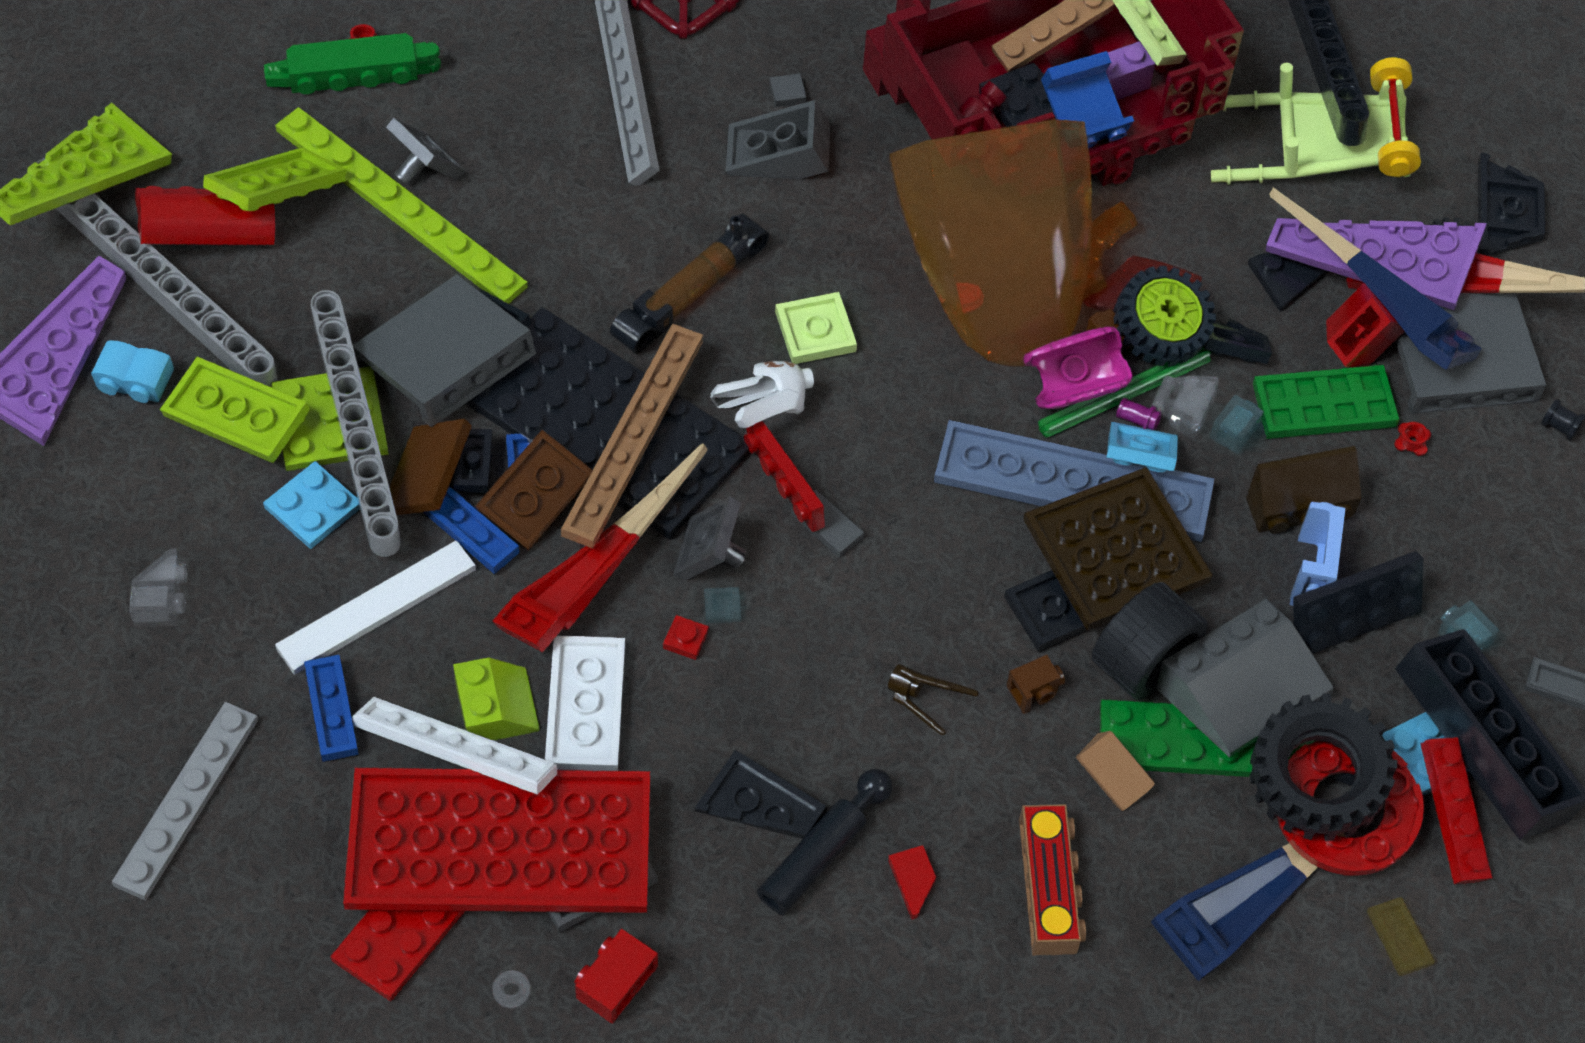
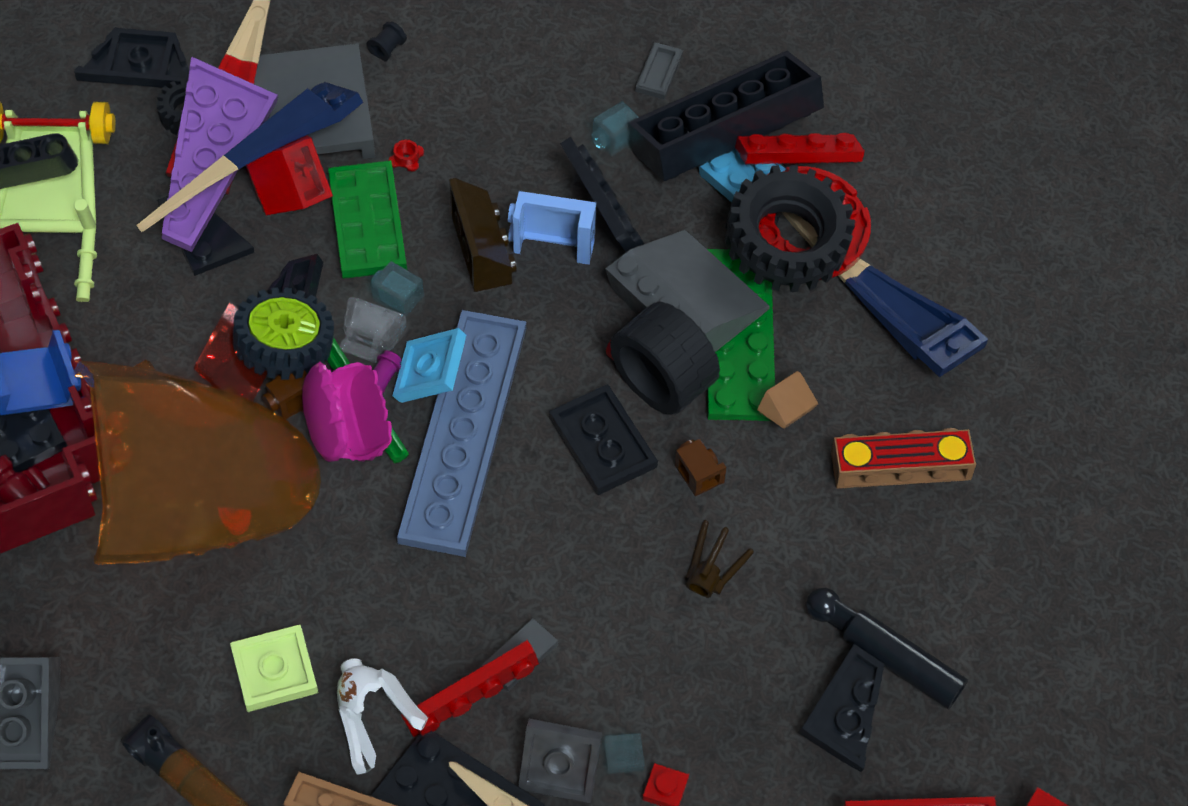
camera: 90 degrees left, 0 degrees up
(913, 876) = (910, 574): red tile -> none
(1115, 544) = (552, 388): dark brown plate -> none
(1400, 936) = (914, 203): clear yellow tile -> none

